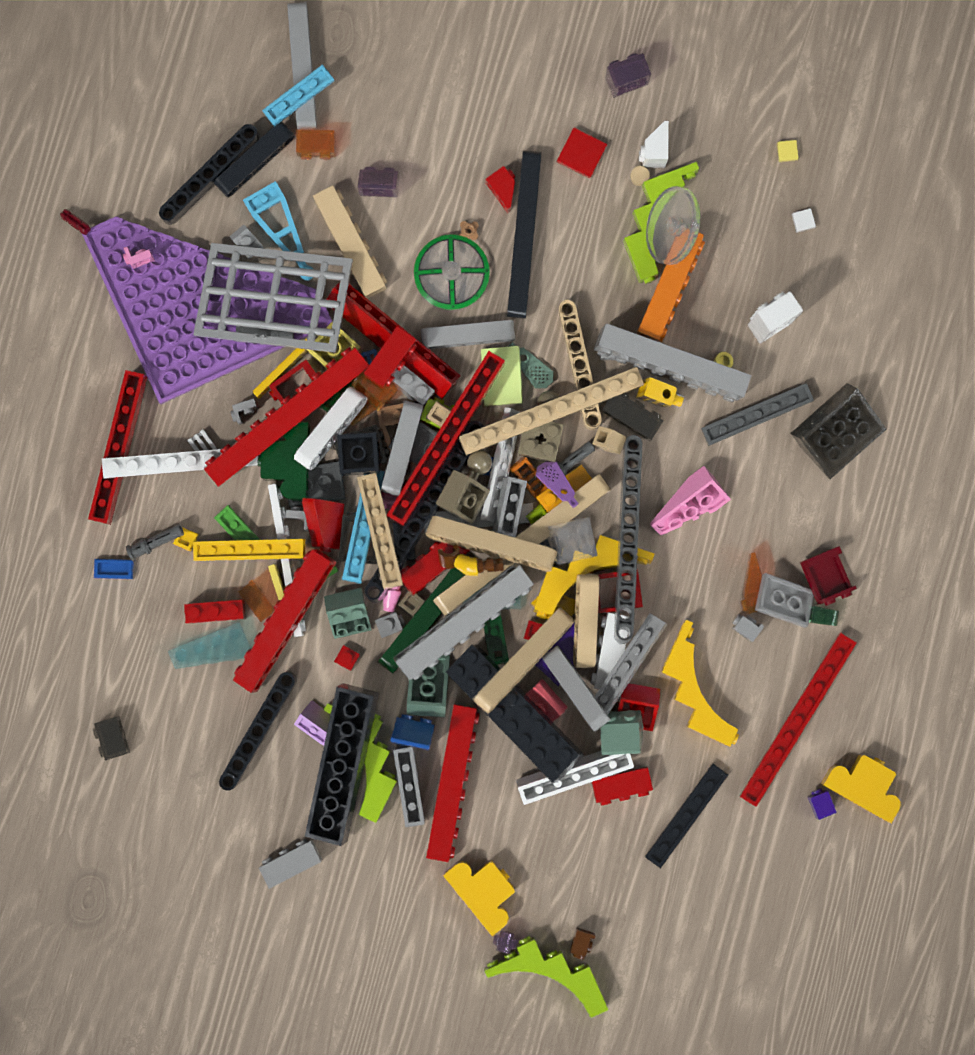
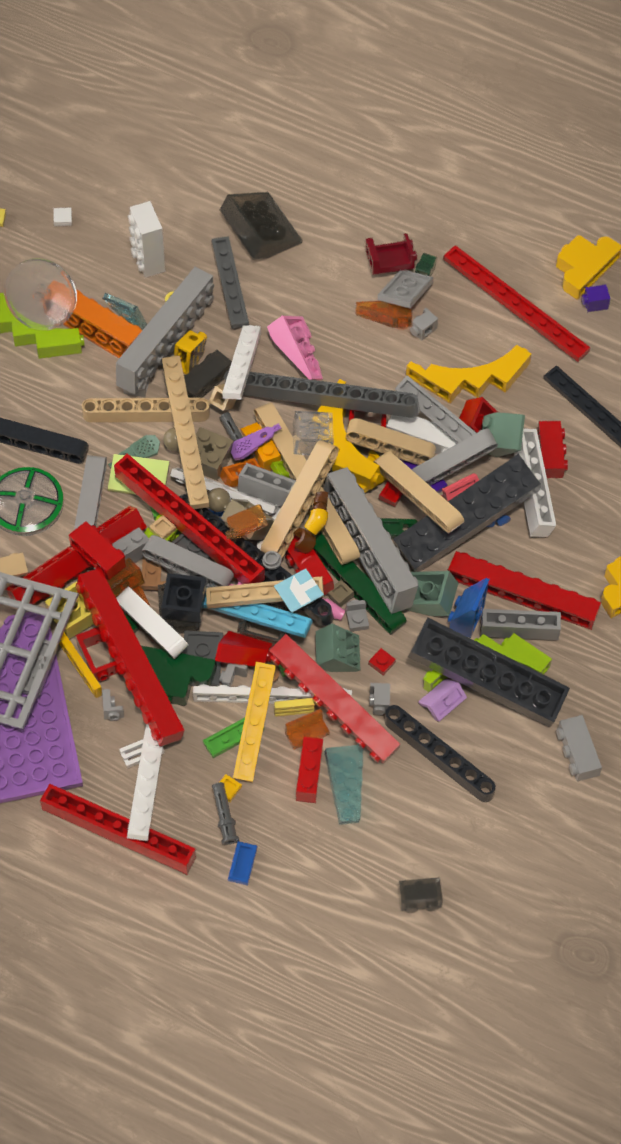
camera: 80 degrees left, 25 degrees down
(303, 664) = (379, 697): none -> light grey brick
(383, 564) = (298, 590): none -> medium azure sticker
(417, 530) = (272, 560): none -> light grey plate
(445, 497) = (246, 522): none -> clear orange panel
(651, 449) = (241, 362): none -> white plate
(681, 320) = (126, 310): none -> clear light blue wing

